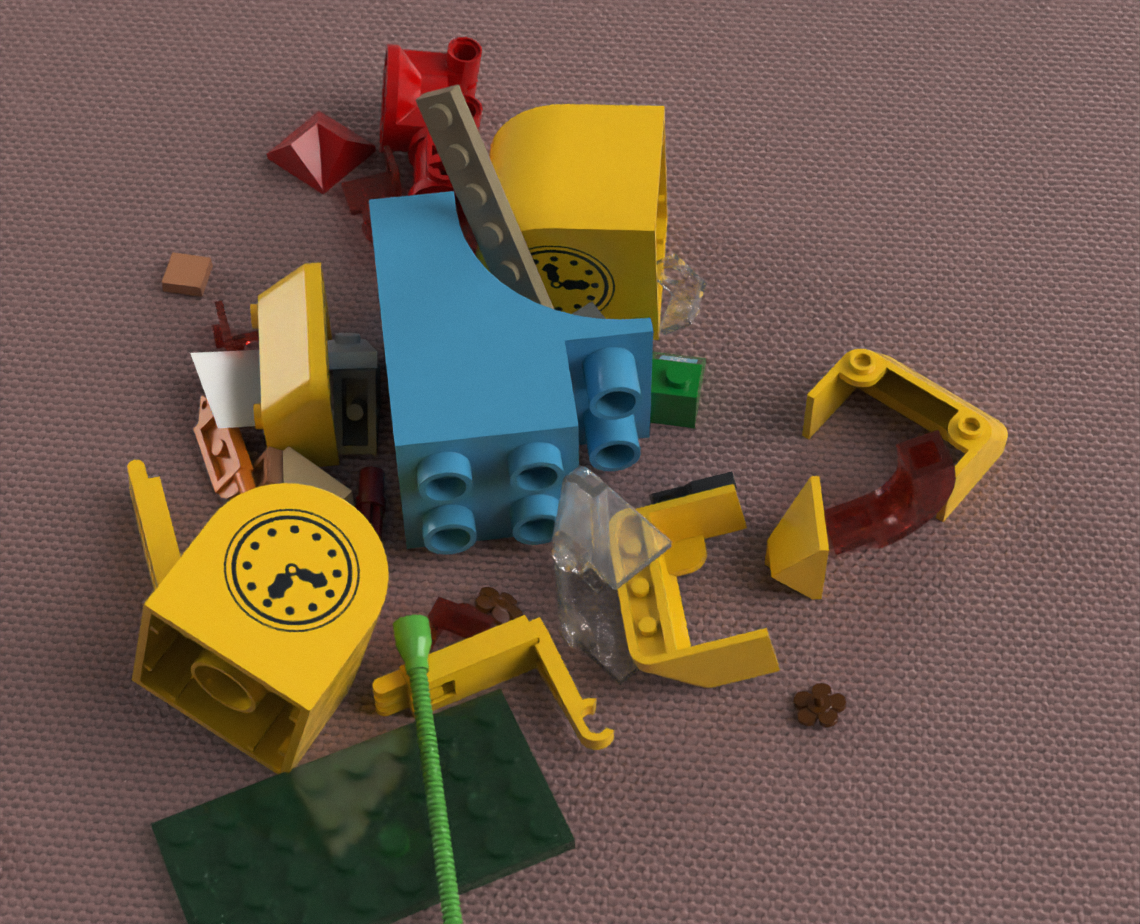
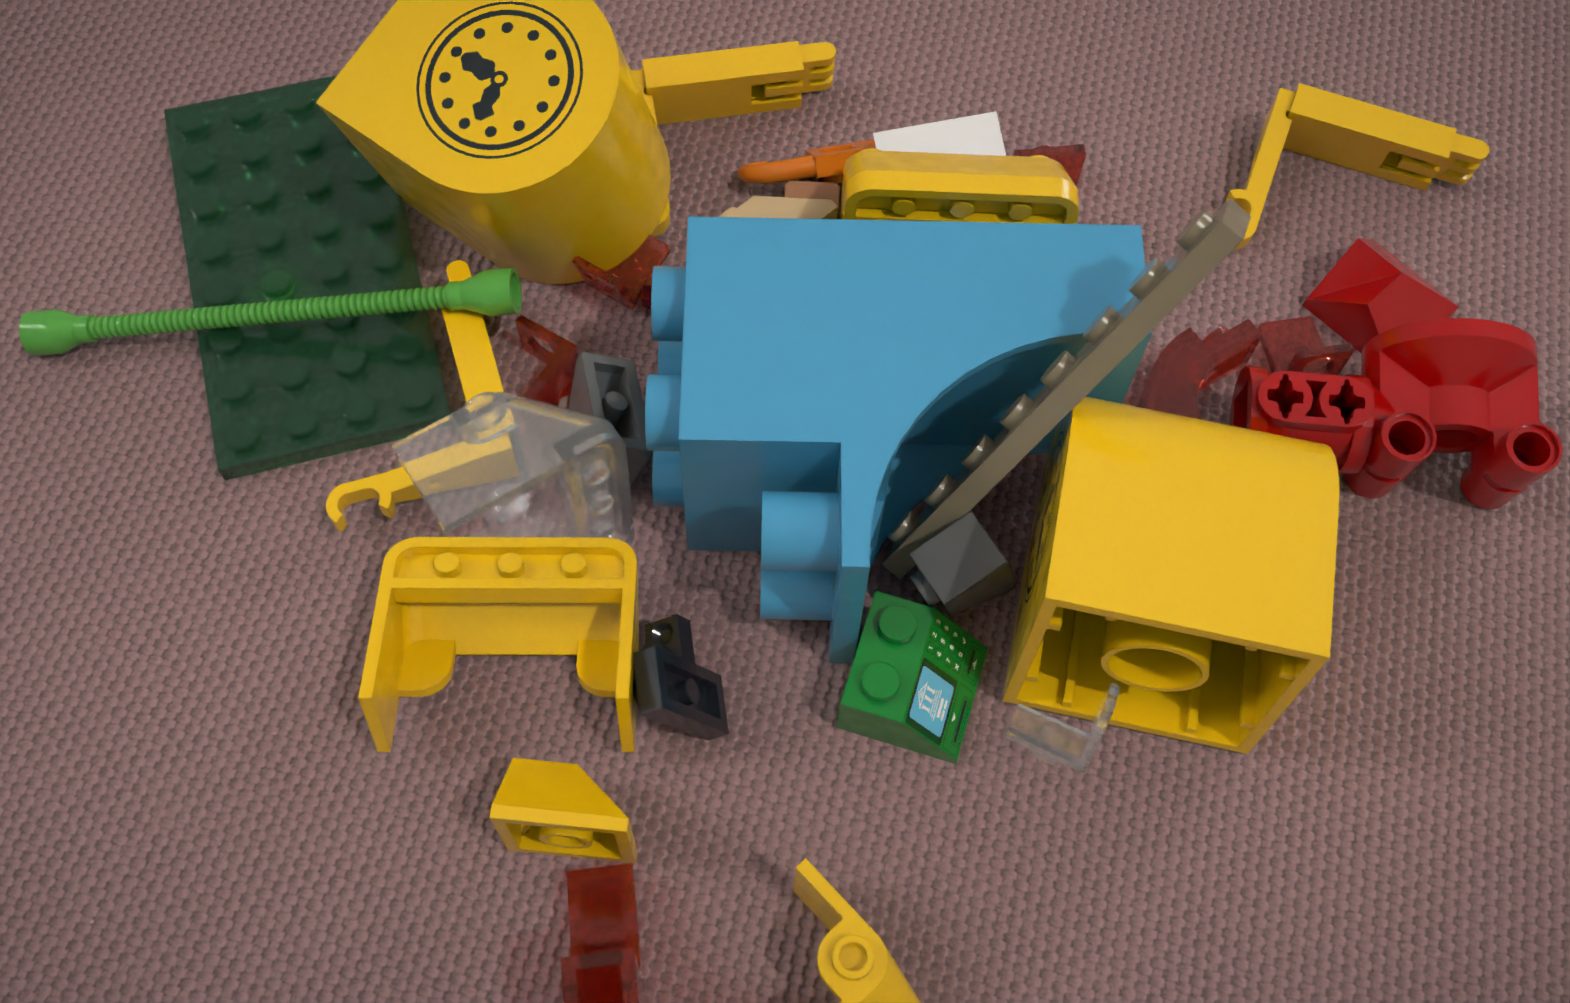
camera: 95 degrees right, 10 degrees up
(181, 162) = (1357, 138): none -> yellow hinge
(187, 274) = (1157, 141): nougat tile -> none
(502, 570) = (611, 391): none -> dark grey slope
(819, 705) = (330, 807): reddish brown plant -> none

